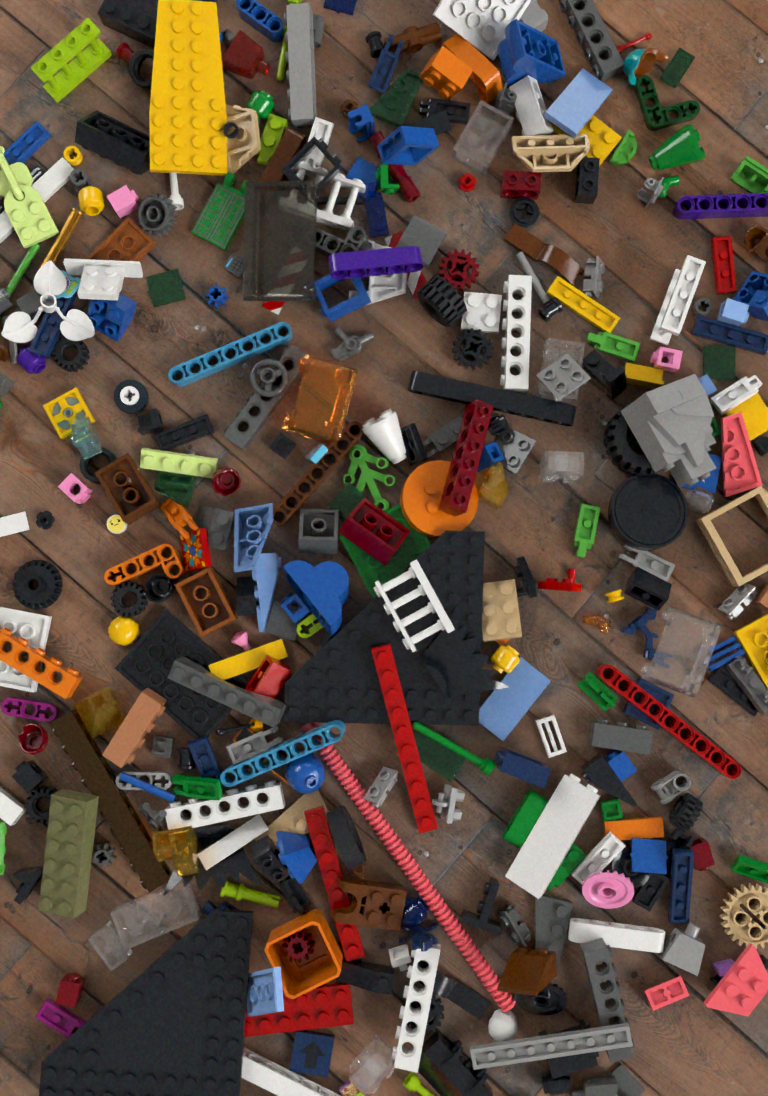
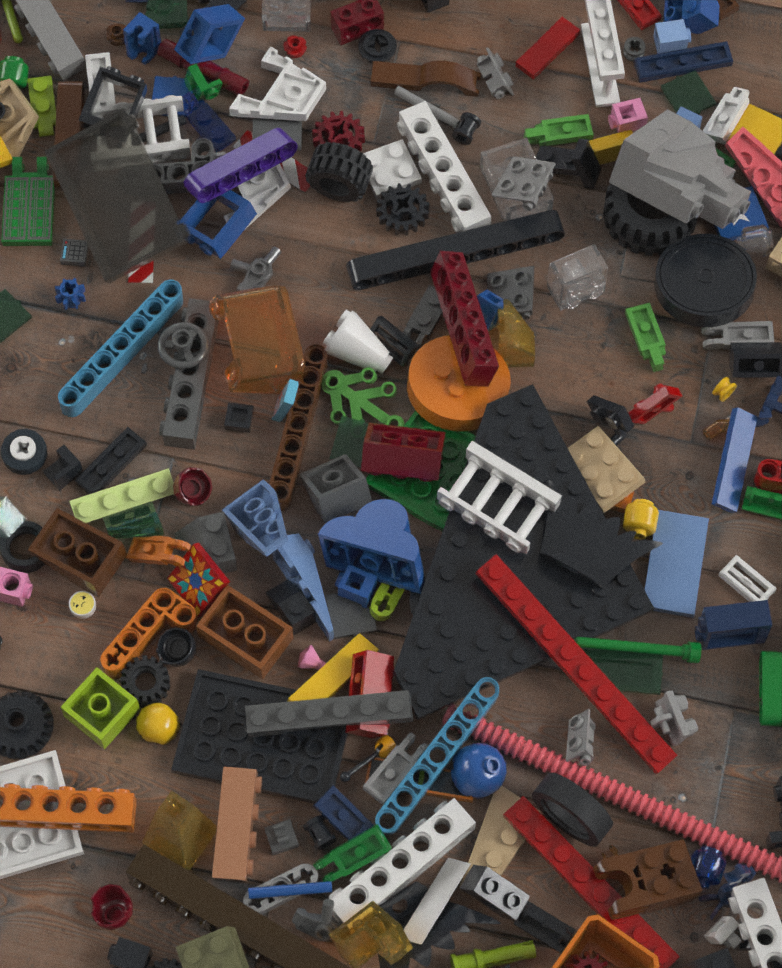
camera: 30 degrees left, 20 degrees down
(17, 702) = (69, 891): magenta beam -> none
(89, 604) = (100, 708): none -> lime brick
(296, 853) = (522, 867): blue slope -> none
(441, 222) = (289, 98): none -> white wing
(498, 425) = (480, 272): black gear -> none
(583, 305) = (501, 107): yellow plate -> none
(591, 650) = (734, 460): none -> tile
(642, 275) = (547, 48): none -> red tile

